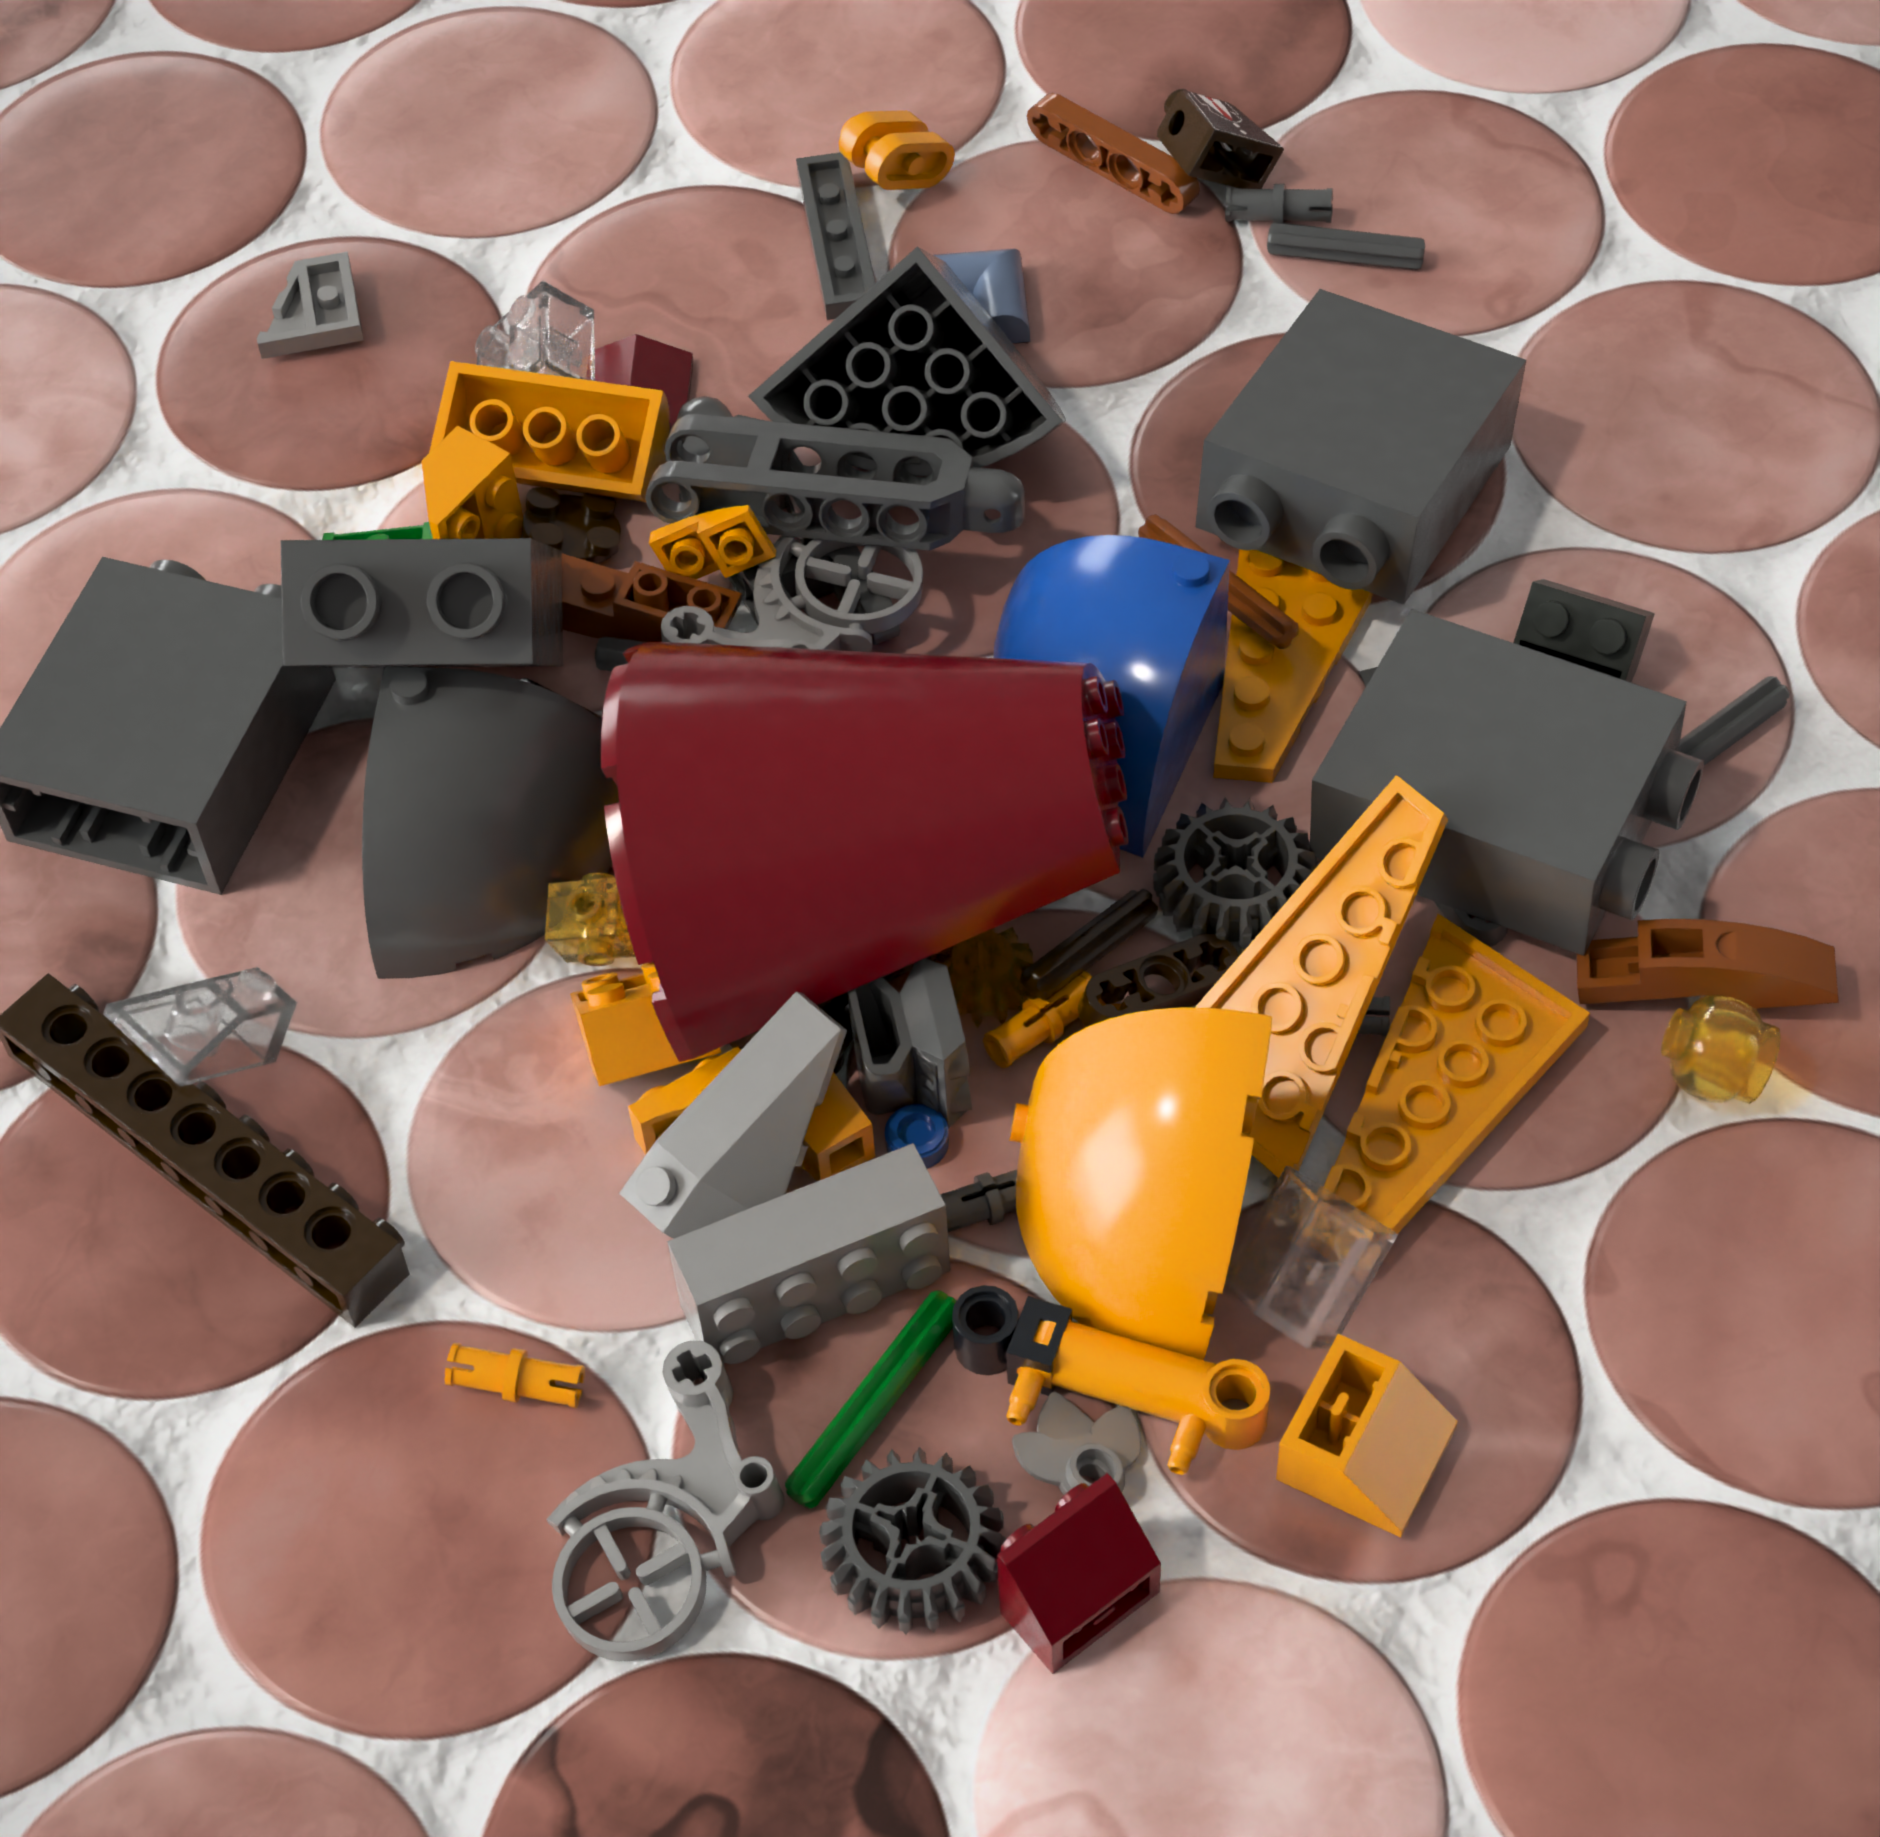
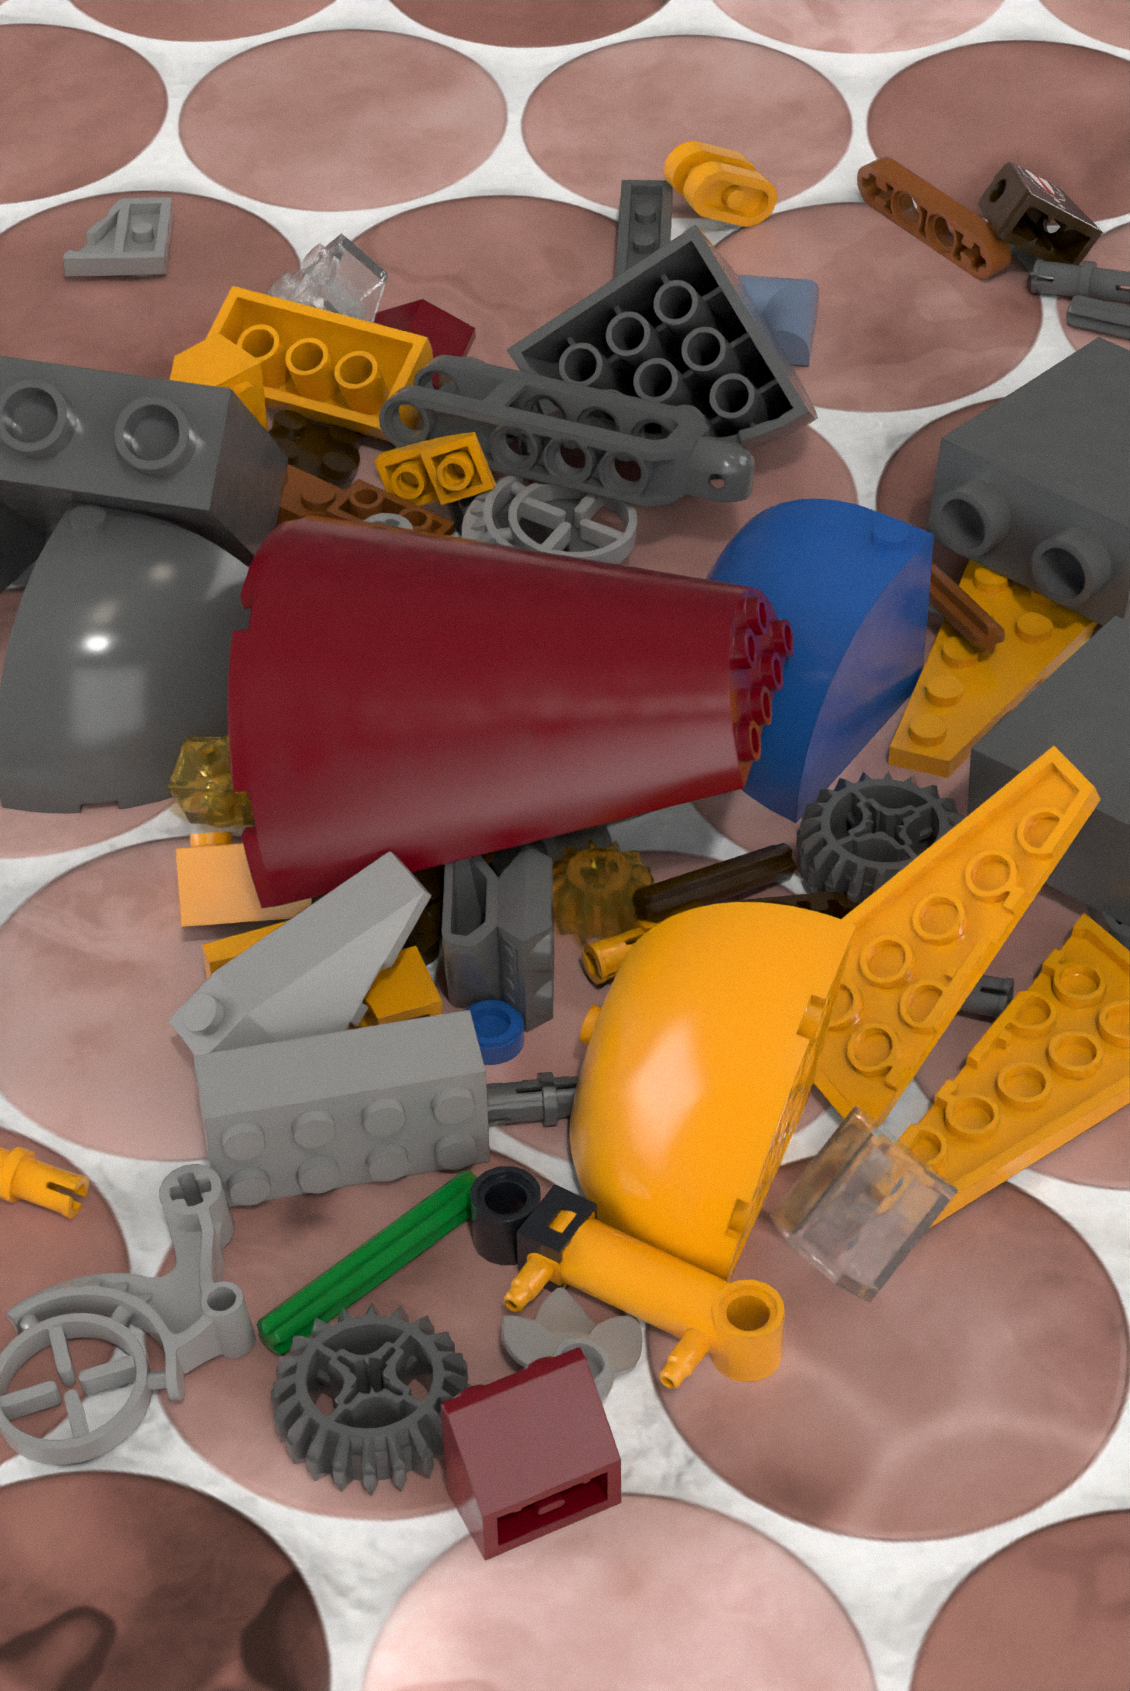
camera: 10 degrees right, 10 degrees down
(1365, 1437) = (875, 1382): light orange slope -> none

